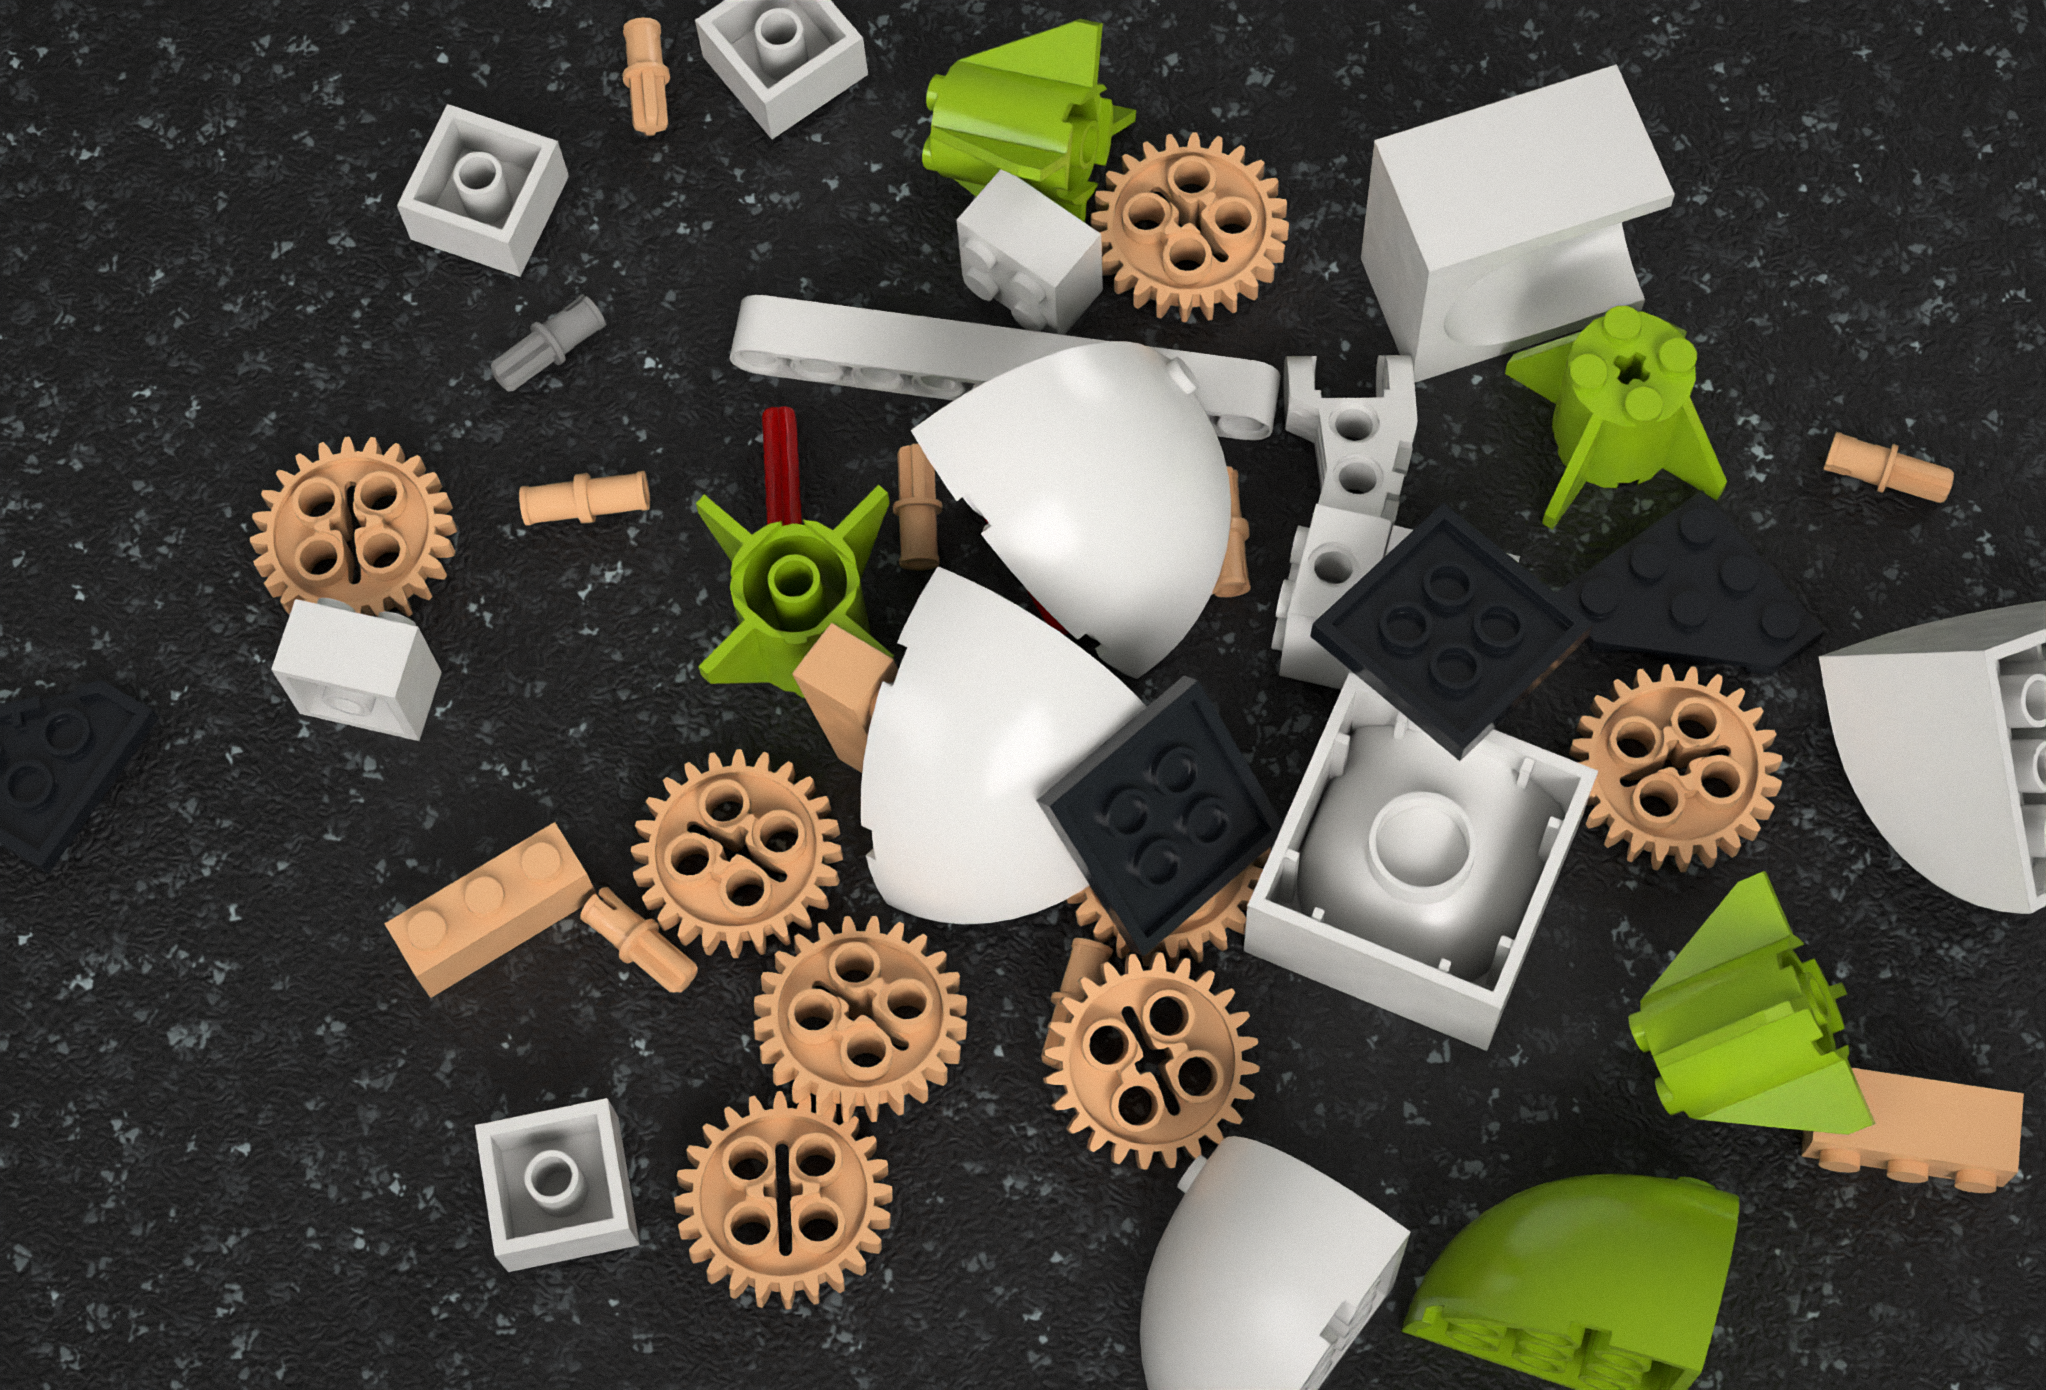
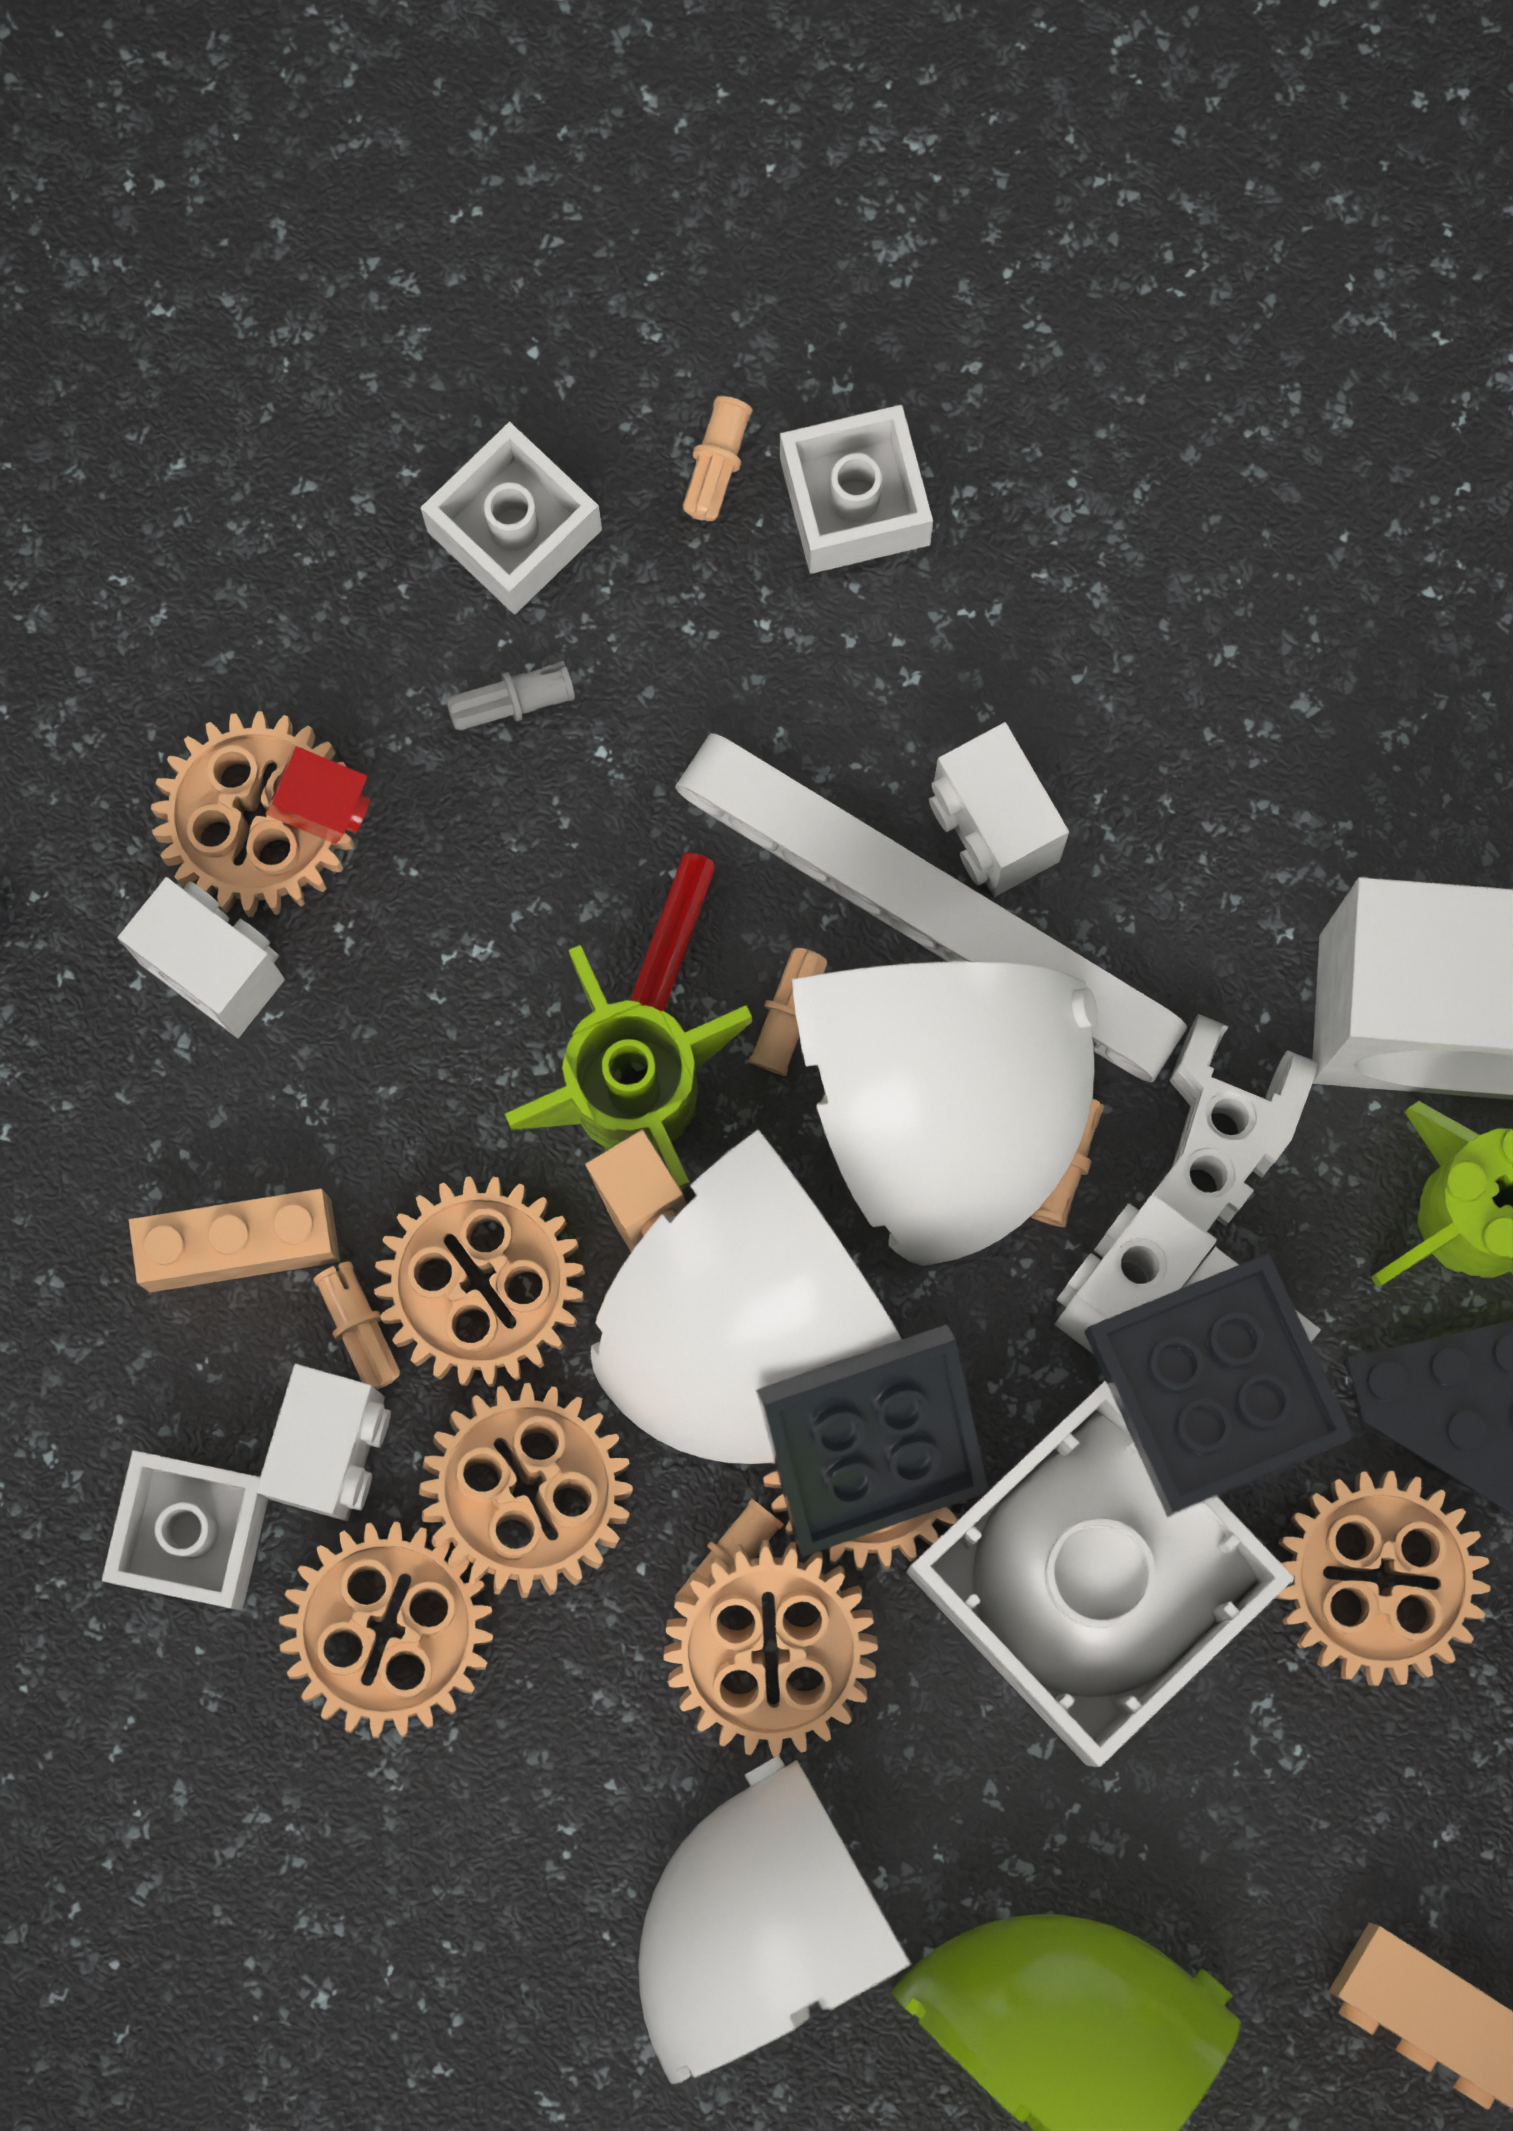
camera: 20 degrees right, 10 degrees up
(407, 483) = (319, 796): none -> red brick
(584, 498) = (483, 868): light nougat pin -> none
(652, 1051) = (324, 1443): none -> white brick
(1026, 112) = (1053, 676): lime brick -> none
(1229, 196) = (1113, 853): light nougat gear -> none
(1750, 1026) = (1327, 1869): lime brick -> none

